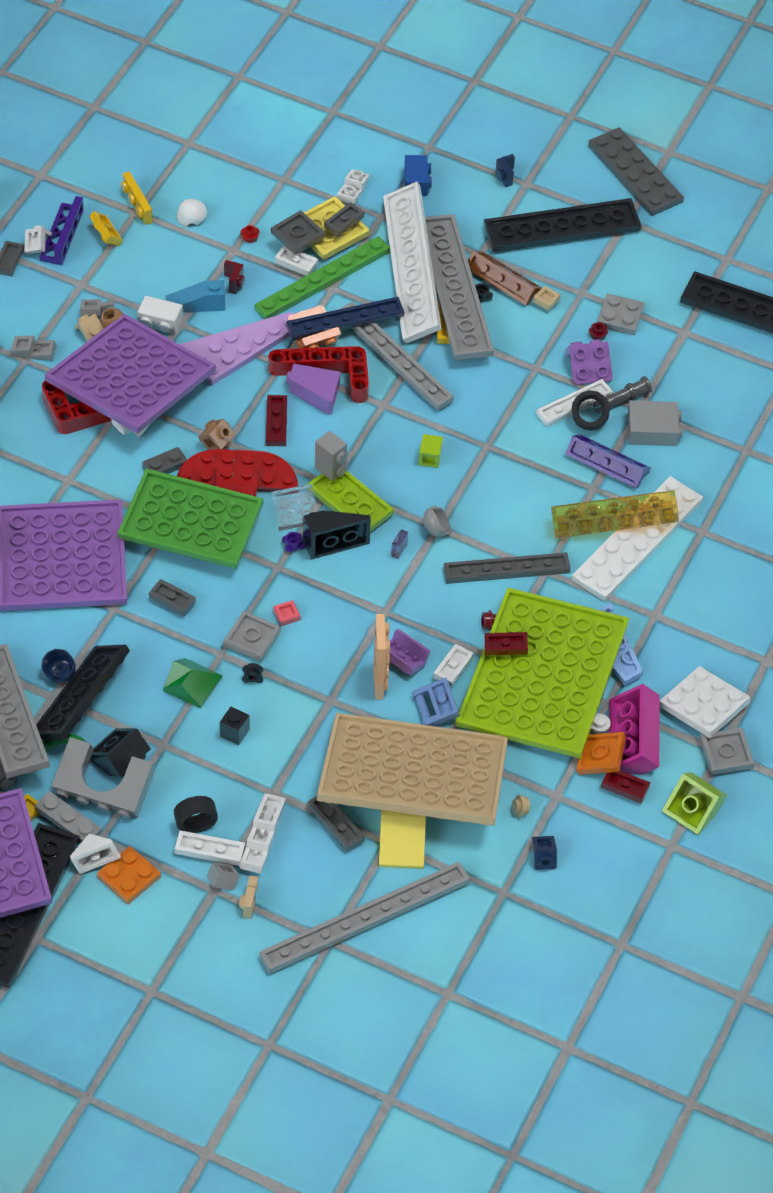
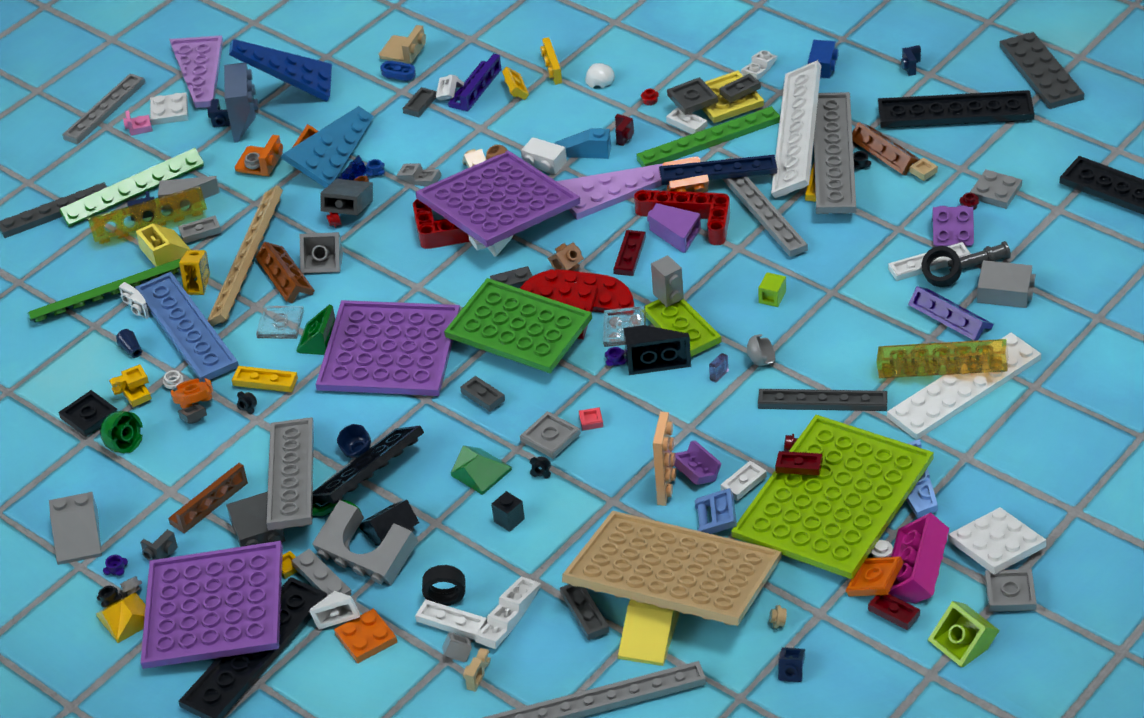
camera: 20 degrees right, 10 degrees down
(95, 306) = (484, 144): light grey plate -> none

